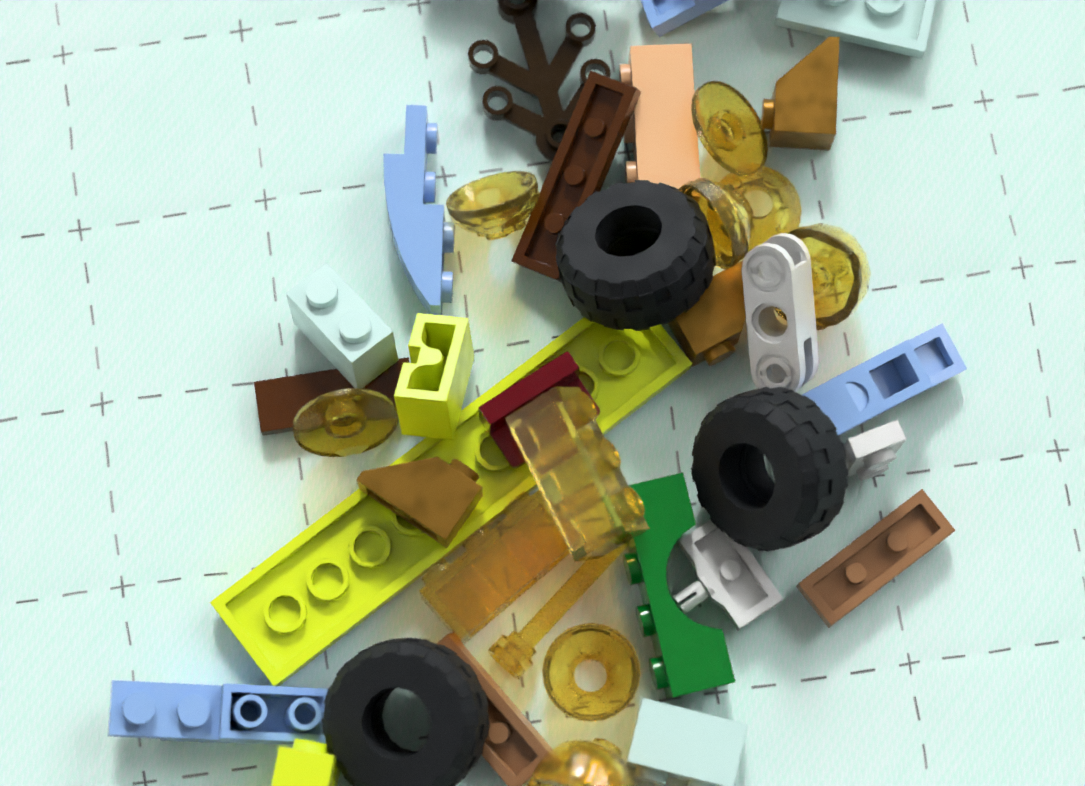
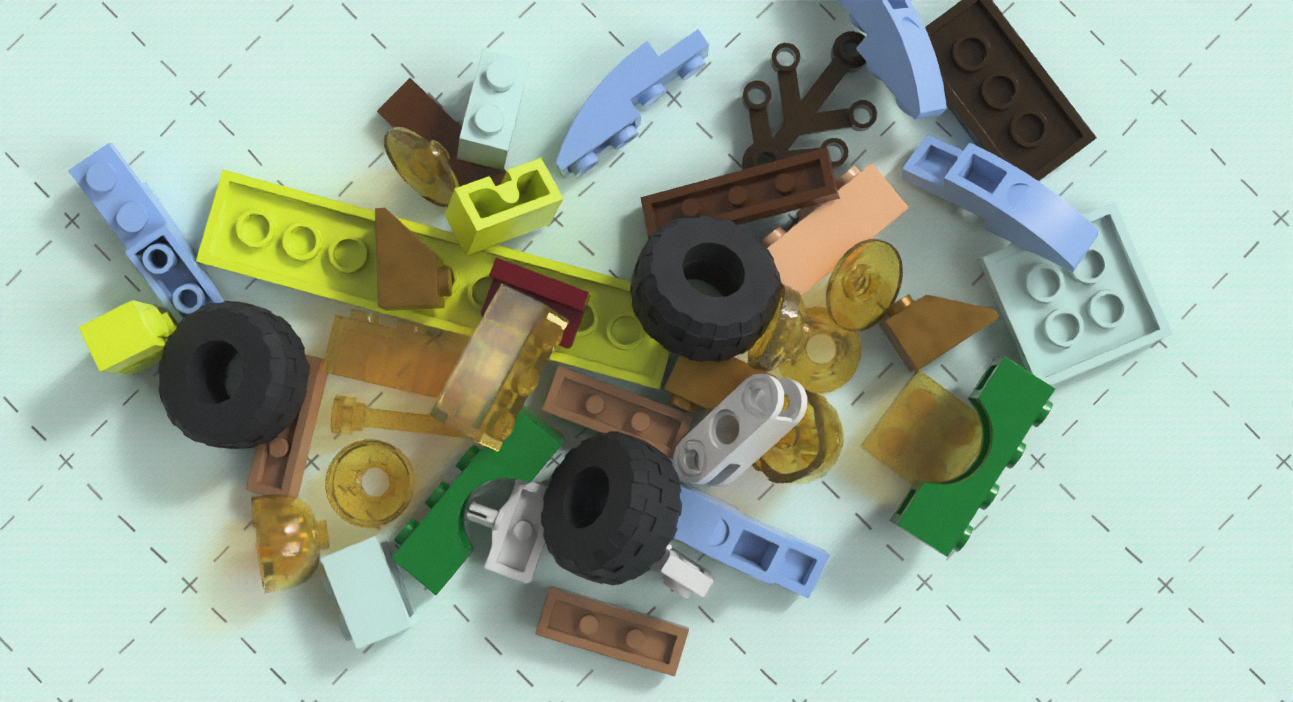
camera: 60 degrees right, 10 degrees up
(494, 204) = (673, 151): clear yellow piece -> none
(676, 419) = (615, 409): none -> medium nougat plate
(898, 171) = (925, 433): none -> clear yellow plate
(920, 83) = (1007, 407): none -> green arch

